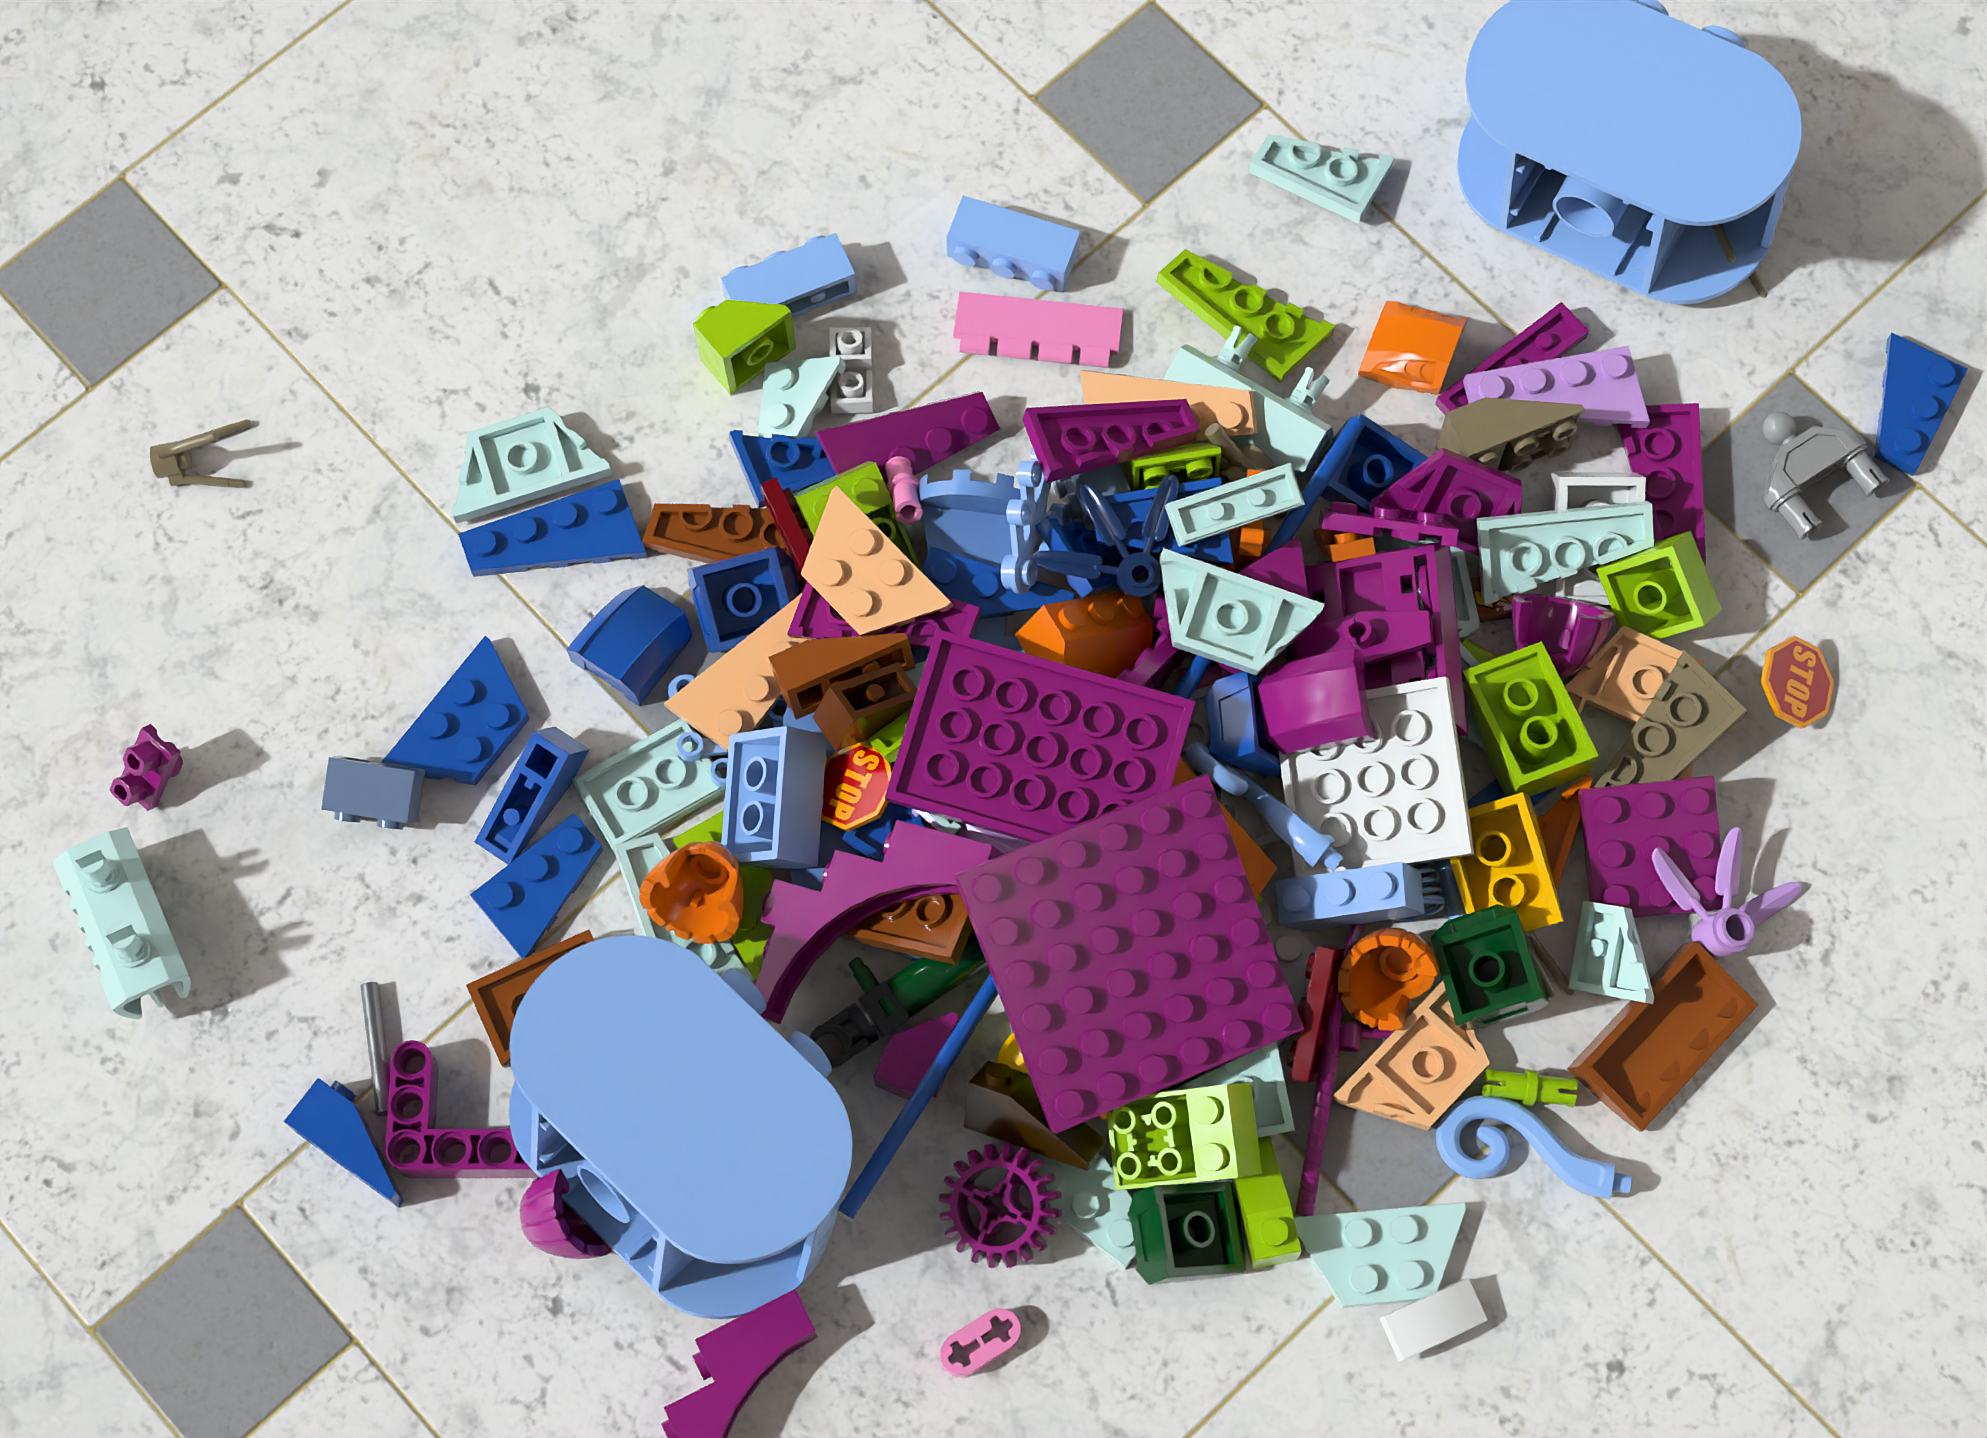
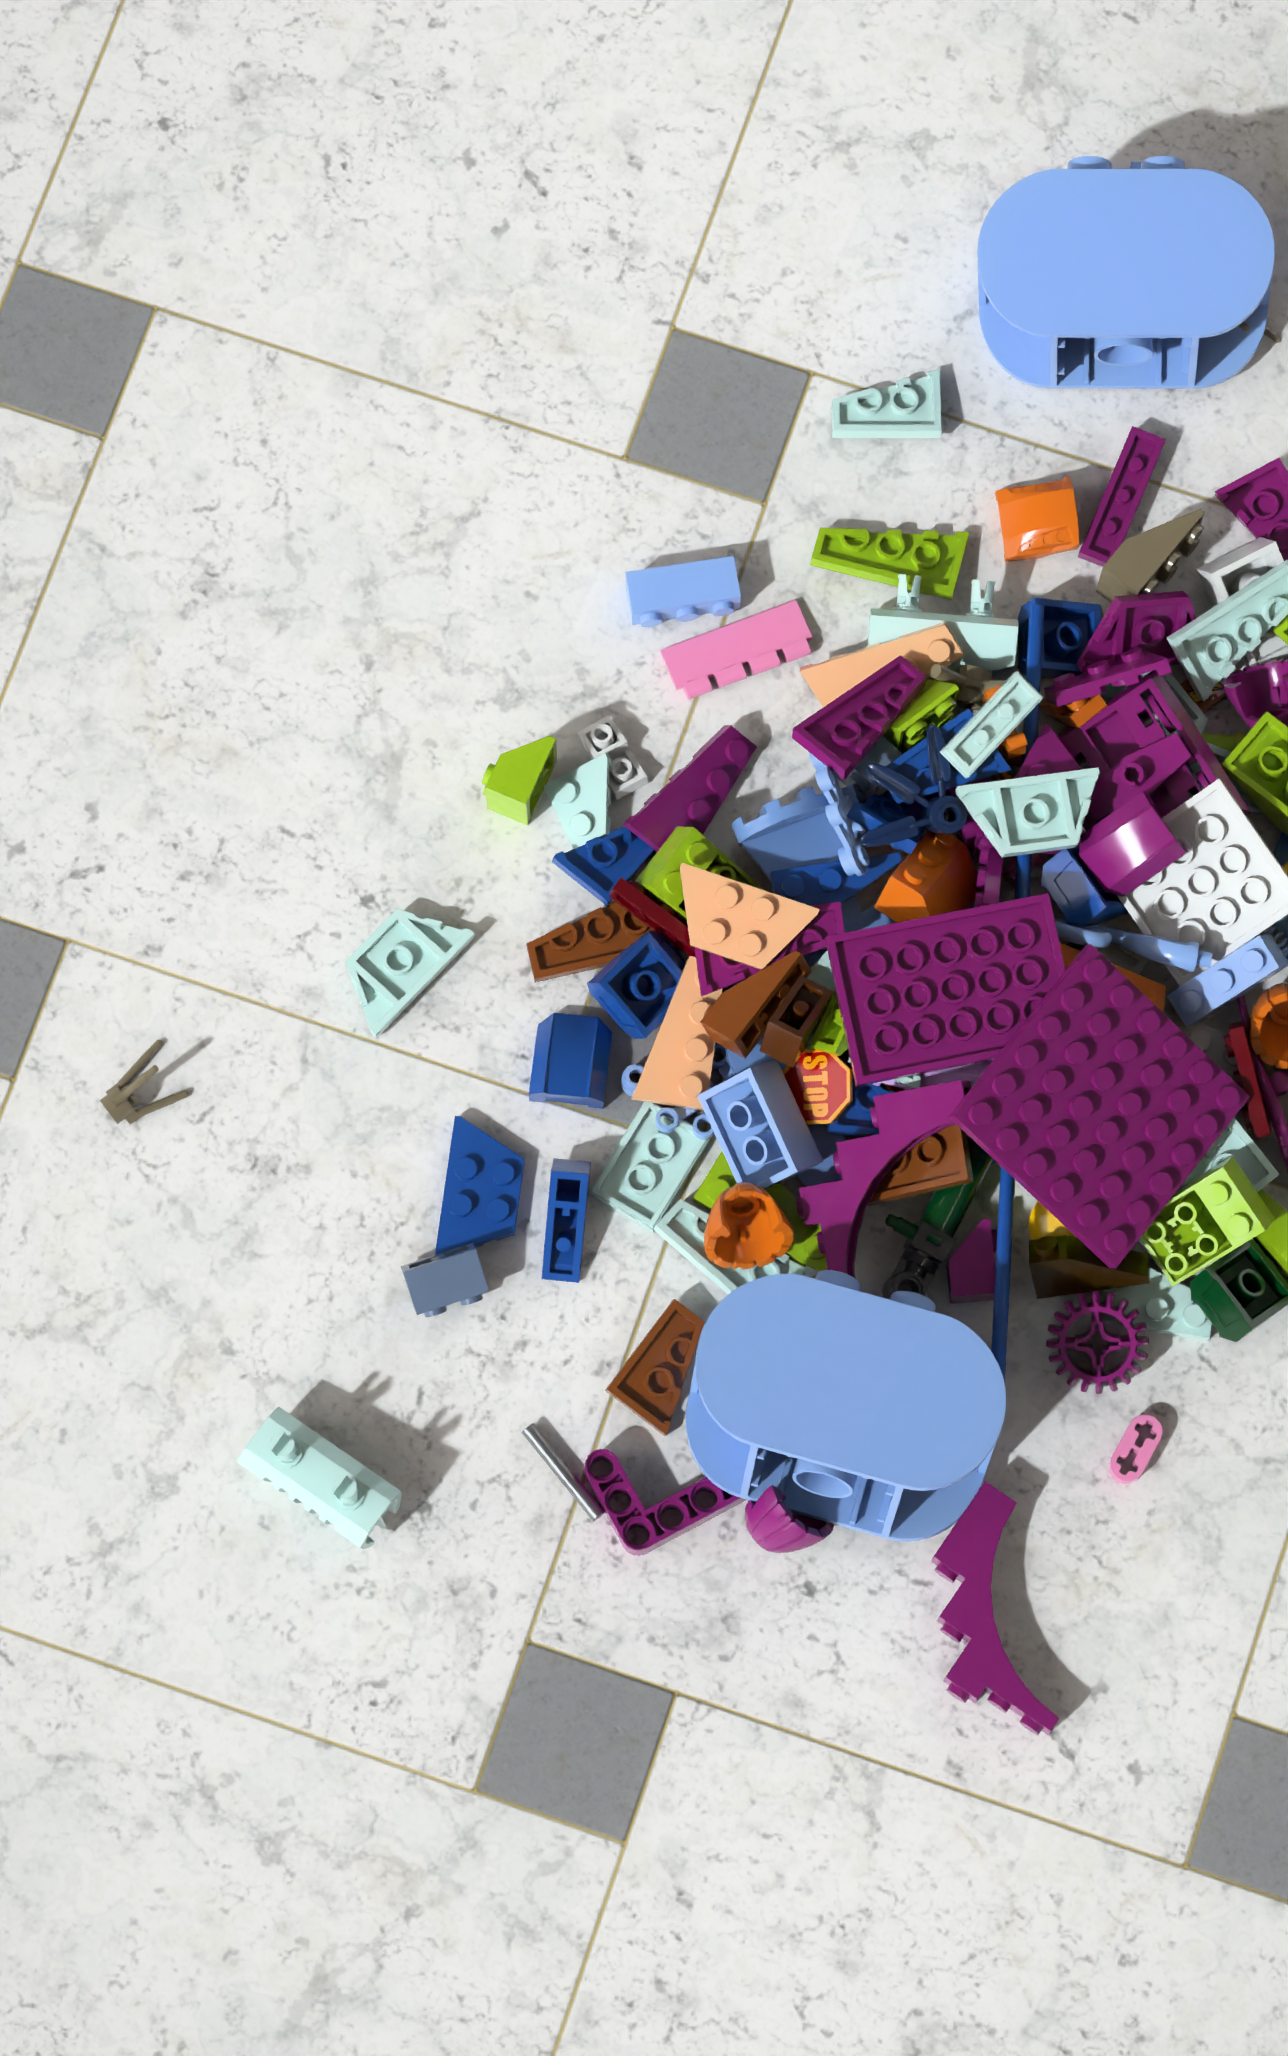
camera: 30 degrees left, 5 degrees up
(146, 770) = (261, 1355): magenta hips -> none
(341, 1132) = (578, 1548): blue slope -> none
(535, 886) = (610, 1286): blue wing -> none
(573, 529) = (468, 999): blue wing -> none
(796, 278) = (527, 708): light blue brick -> none
(903, 490) = (722, 836): bright pink pin -> none
(1598, 380) = (1190, 483): lavender wing -> none

